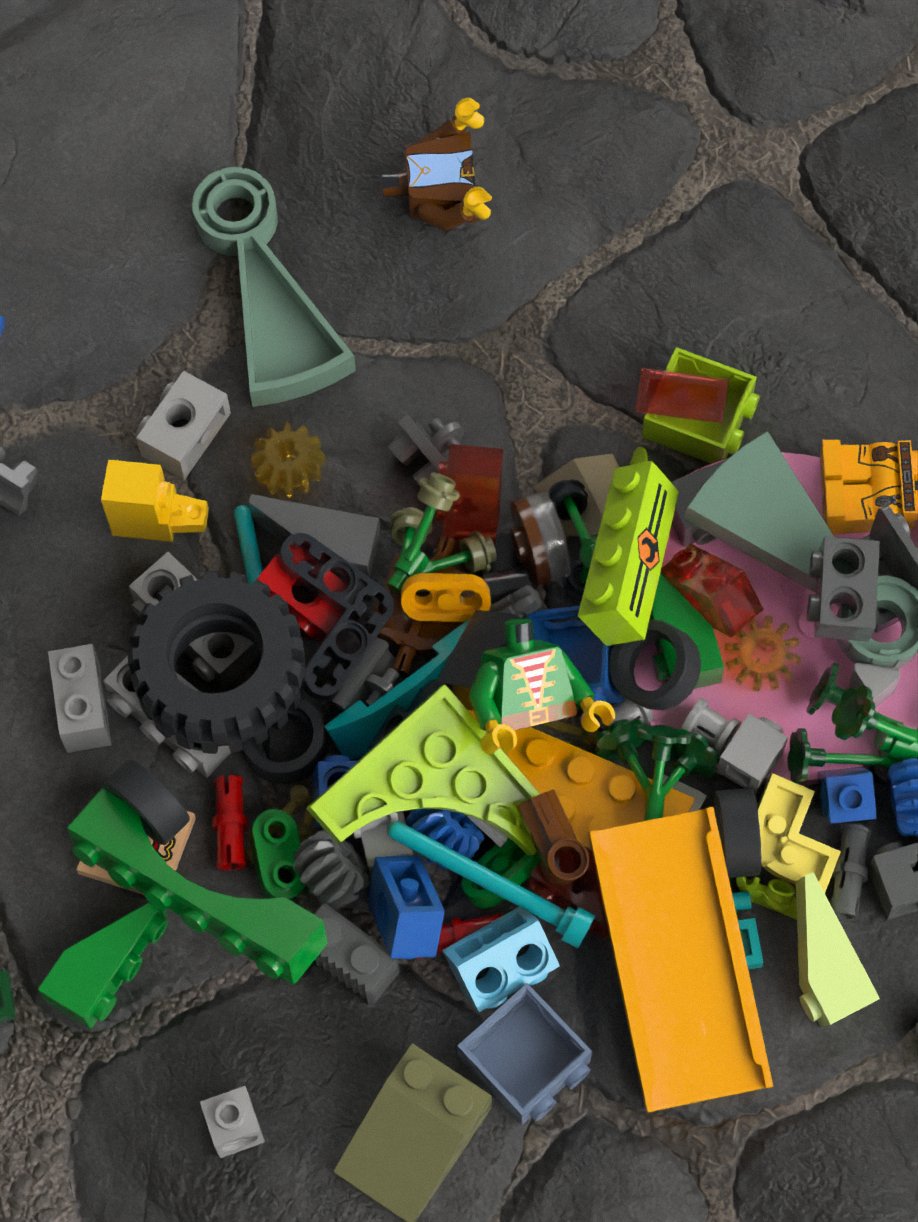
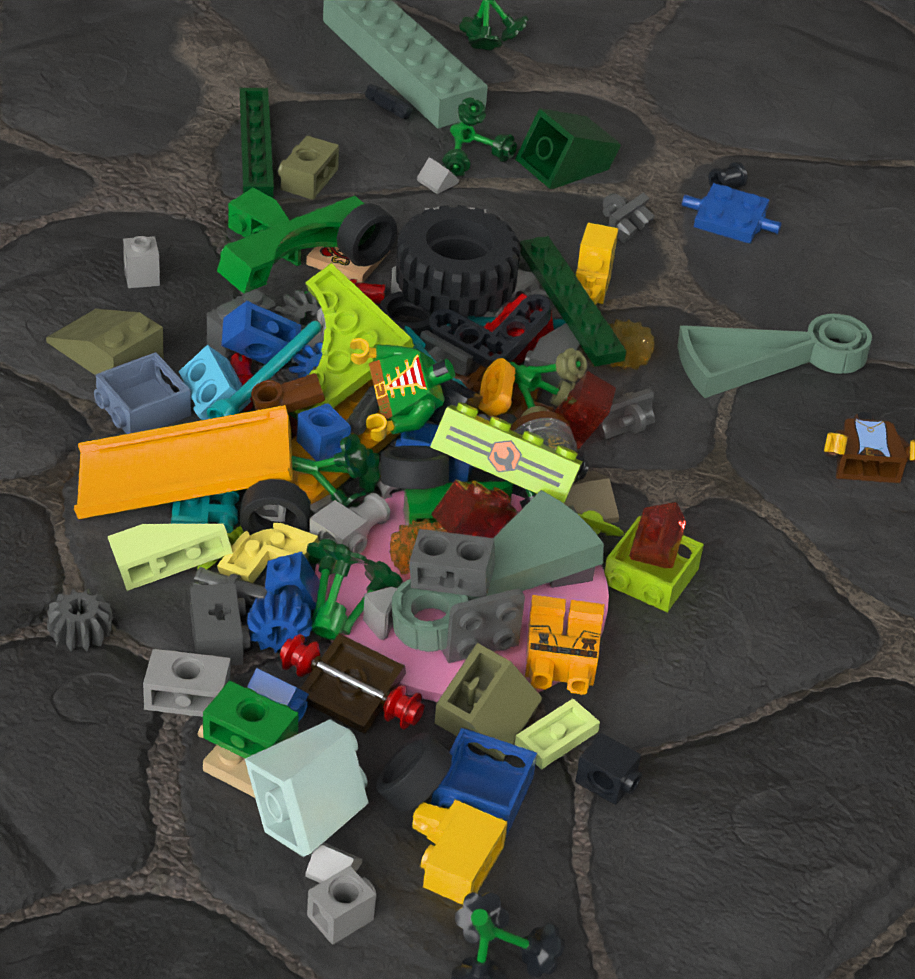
camera: 90 degrees right, 25 degrees down
(181, 447) = (659, 300): light grey brick -> none
(240, 522) = (572, 301): none -> dark green plate
(529, 756) = (367, 406): none -> dark grey axle
(594, 773) = (321, 431): none -> blue brick

